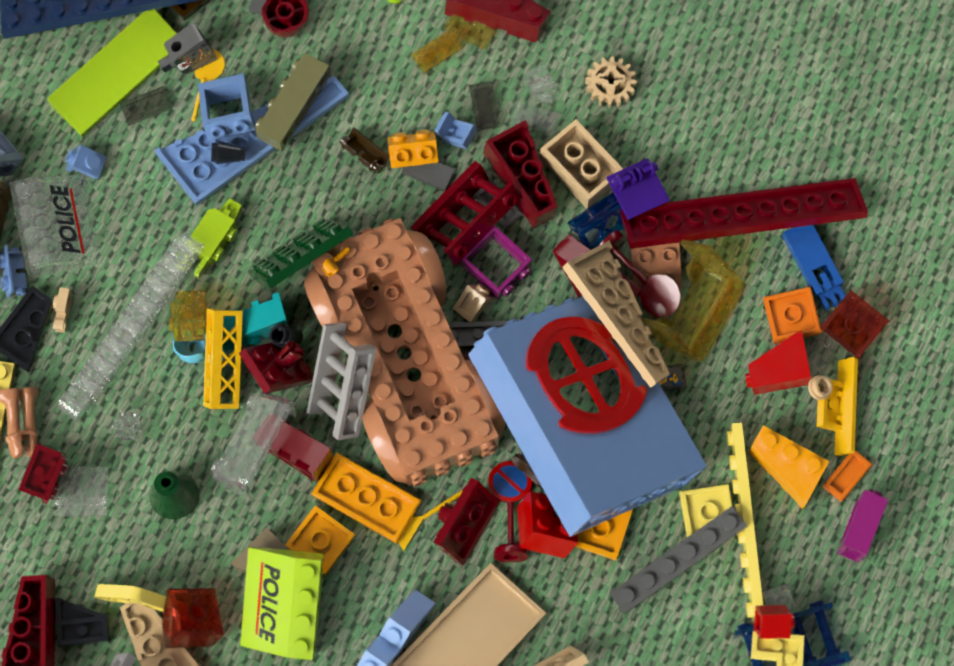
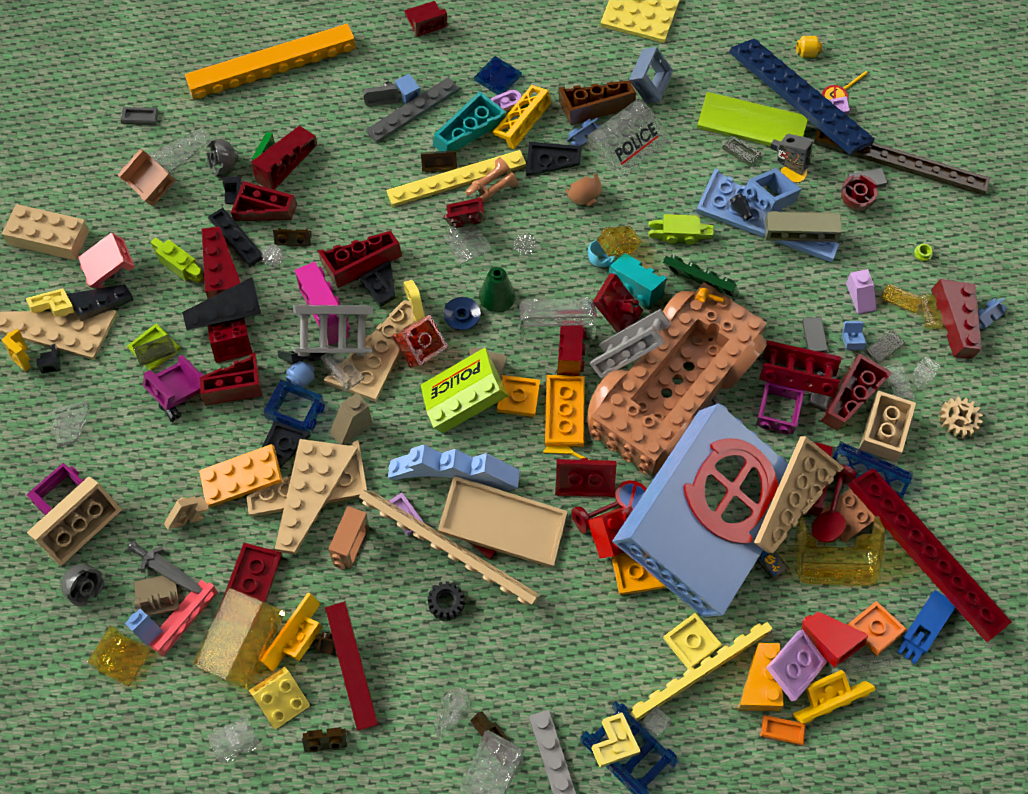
camera: 60 degrees right, 10 degrees down
(62, 306) = (578, 171): tan plate -> none
(85, 161) = (681, 136): medium blue bracket -> none
(97, 314) = (585, 191): none -> nougat cylinder
(130, 326) = (591, 211): clear beam -> none
(168, 540) = (460, 306): none -> dark blue dish
(214, 355) = (599, 266): yellow fence -> none
(282, 334) = (642, 296): black cone -> none
(365, 149) = (800, 291): dark brown hinge -> none
(406, 88) = (862, 291): none -> lavender slope
(412, 149) = (821, 316): light orange bracket -> none
(473, 301) = (743, 406): tan bracket -> none
(638, 188) = (895, 469): dark purple hinge -> none
(678, 560) = (645, 636): dark grey plate -> none
(773, 621) = (637, 722): red brick -> none
(793, 421) = (796, 665): none -> lavender tile
(824, 384) = (839, 673): tan plate -> none
(854, 324) = (900, 674): clear red slope -> none
(862, 525) = (750, 755): magenta window -> none

